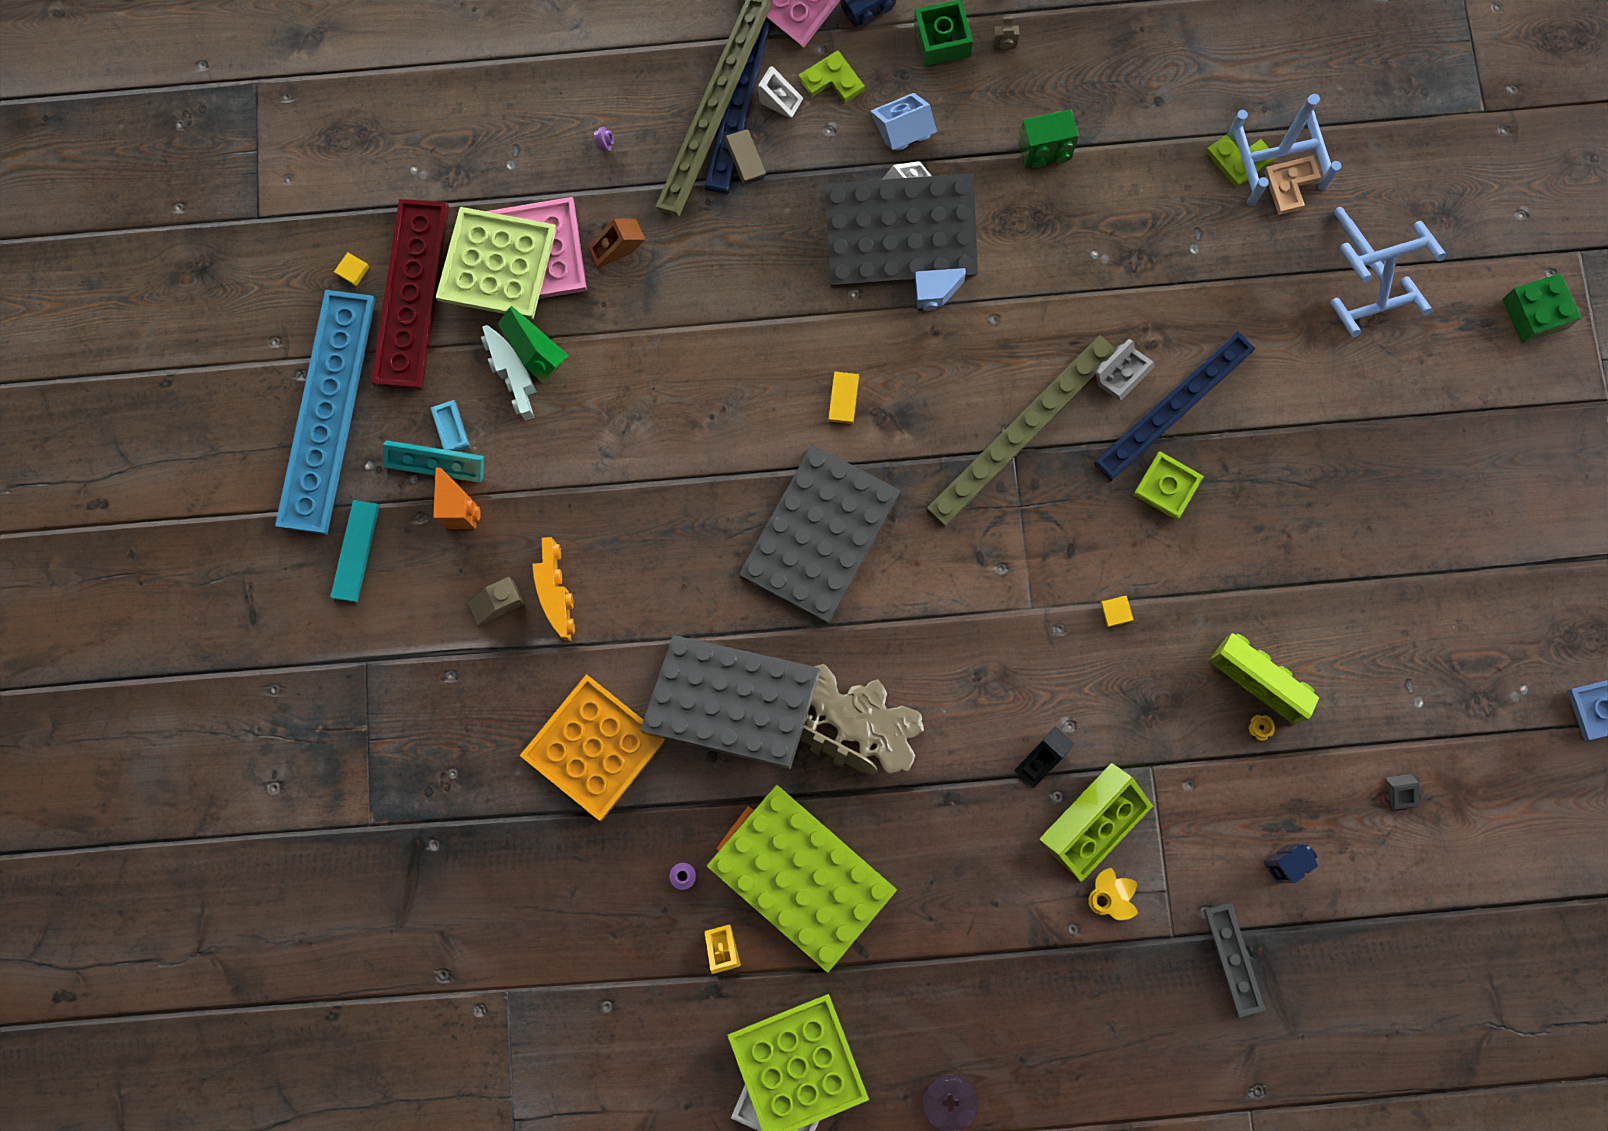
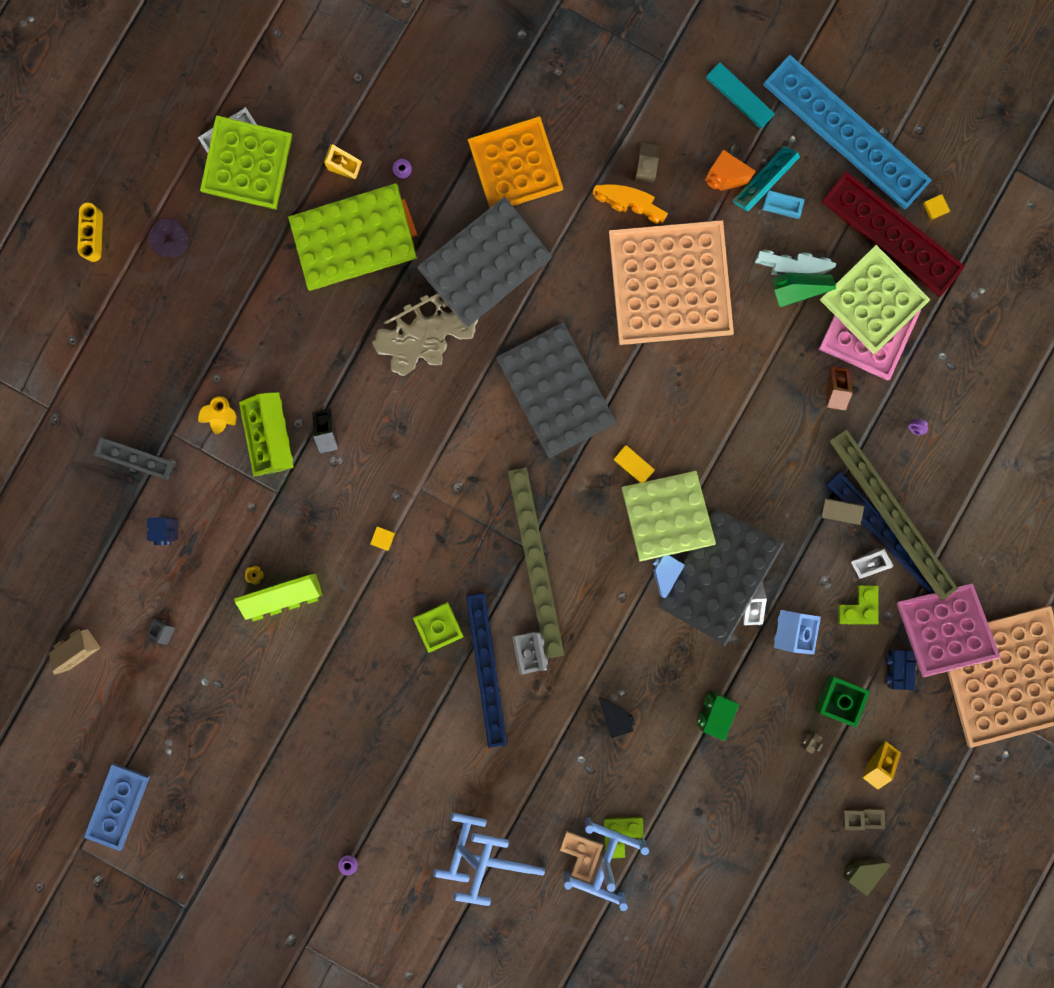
camera: 115 degrees right, 10 degrees up
(617, 488) = (671, 282): none -> light nougat plate
(875, 324) = (668, 516): none -> yellowish green plate
(1126, 238) = (616, 718): none -> black slope
(1483, 413) = (348, 859): none -> medium lavender plate
(1503, 873) = (72, 651): none -> tan slope
(1541, 308) = (388, 949): green brick -> none

